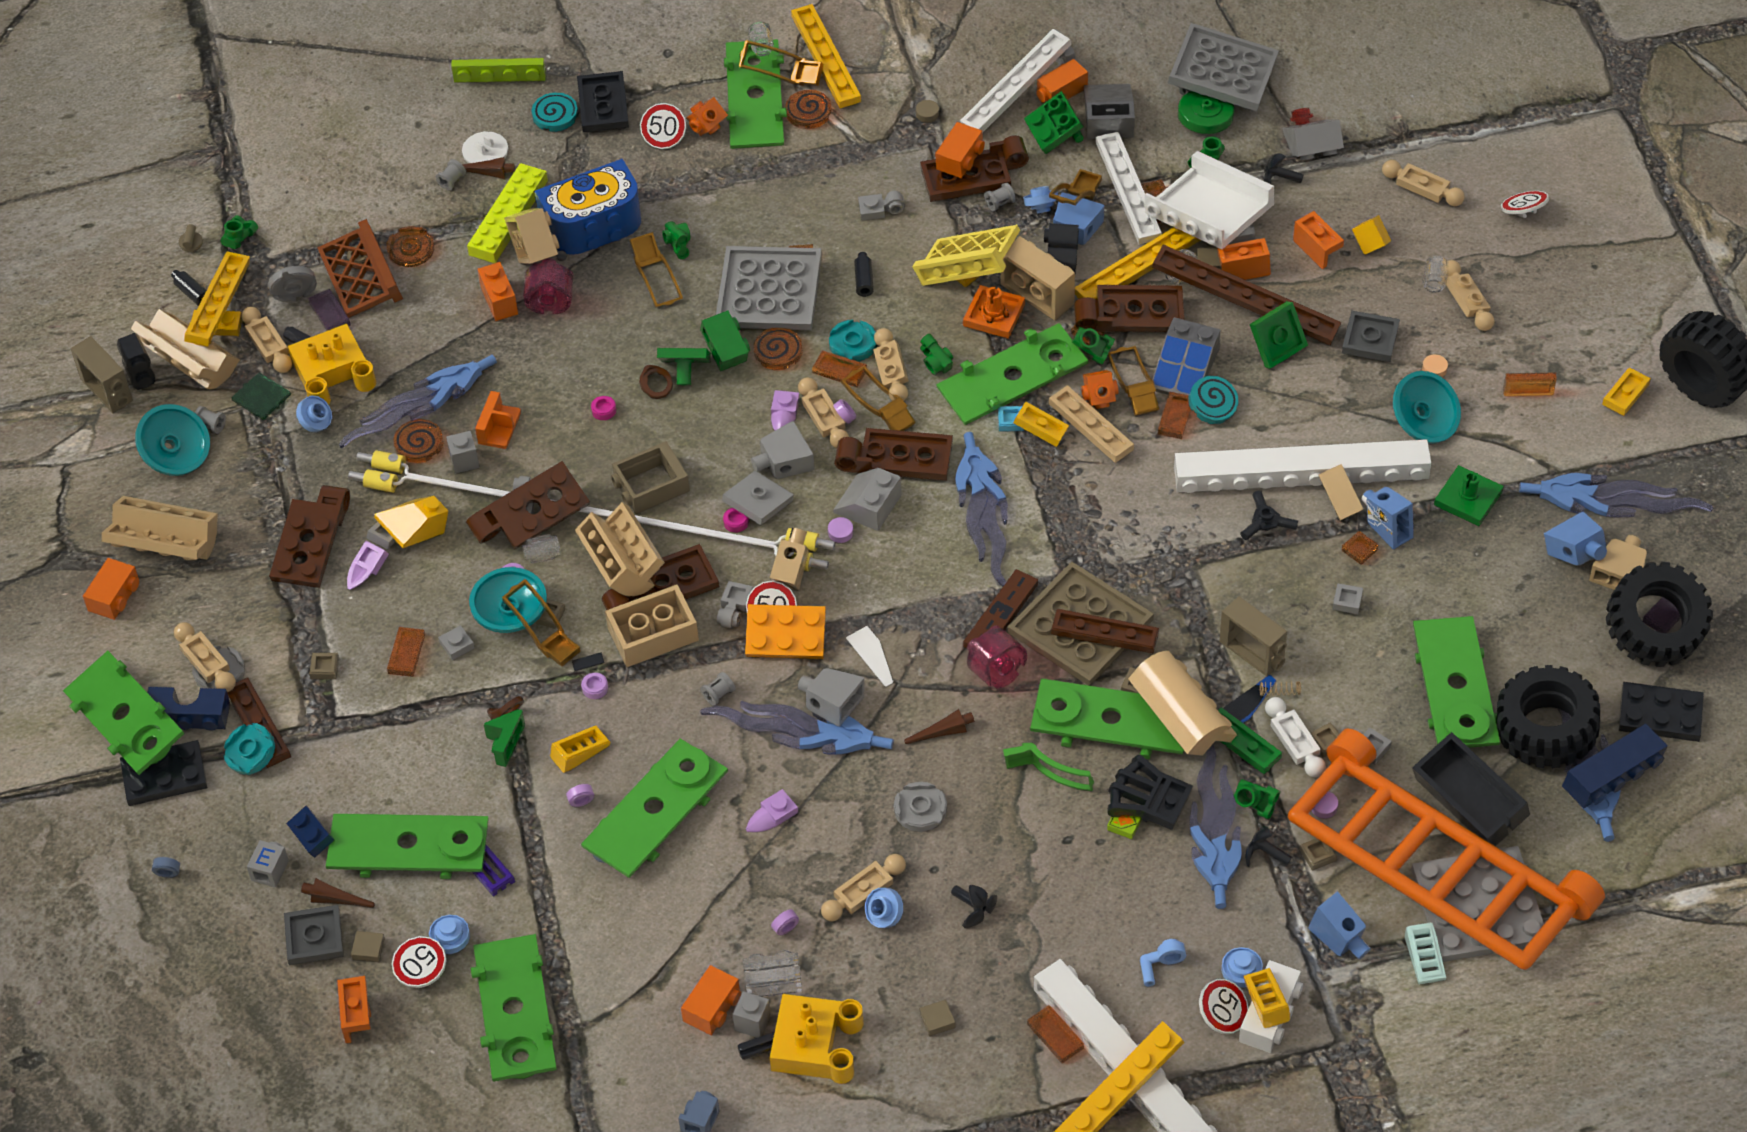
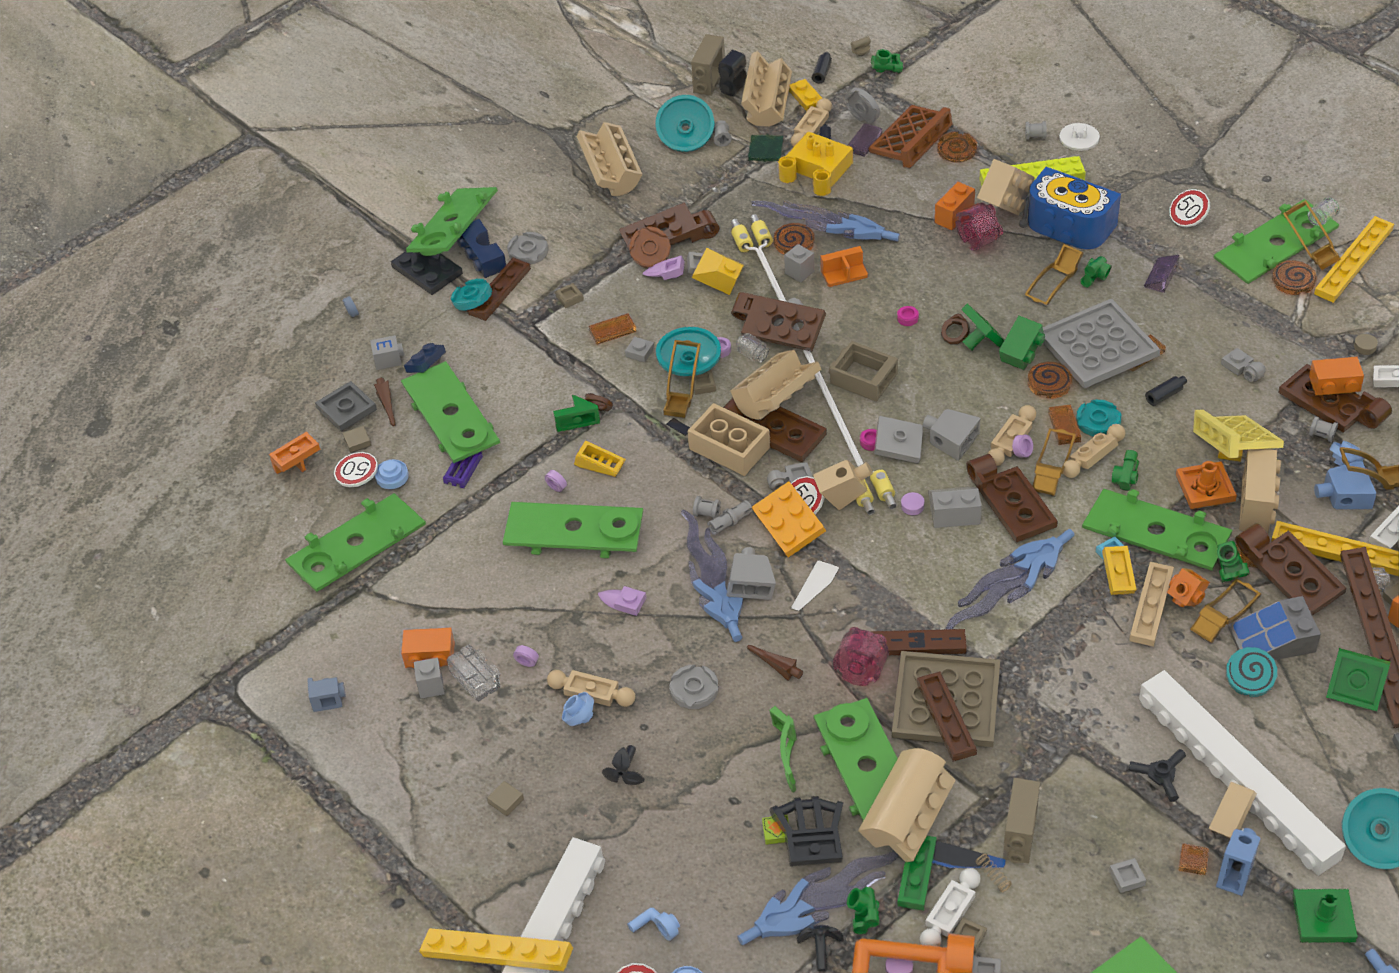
camera: 60 degrees right, 5 degrees down
(111, 588) = (549, 164): orange brick -> none
(204, 656) = (524, 232): tan plate -> none
(217, 299) = (815, 79): yellow plate -> none
(314, 414) = (767, 176): light blue plate -> none
(327, 561) = (649, 247): none -> dark orange tile
(494, 167) = (1064, 147): reddish brown piece -> none
(498, 70) = (1152, 103): lime plate -> none
(554, 111) = (1147, 150): teal tile -> none
(594, 686) = (659, 440): lavender tile -> none
(602, 101) = (1181, 167): black plate -> none
(706, 116) = (1223, 217): orange brick -> none
(720, 193) = (1162, 273): none -> clear purple slope
(743, 676) = (730, 517): none -> light grey pin
(784, 408) = (997, 413): lavender plate -> none
(806, 1038) = (431, 723): yellow piece -> none
(1055, 1034) = (536, 884): clear orange tile -> none
(1063, 243) = (1305, 490): black brick -> none
(1175, 416) = (1212, 656): clear orange tile -> none

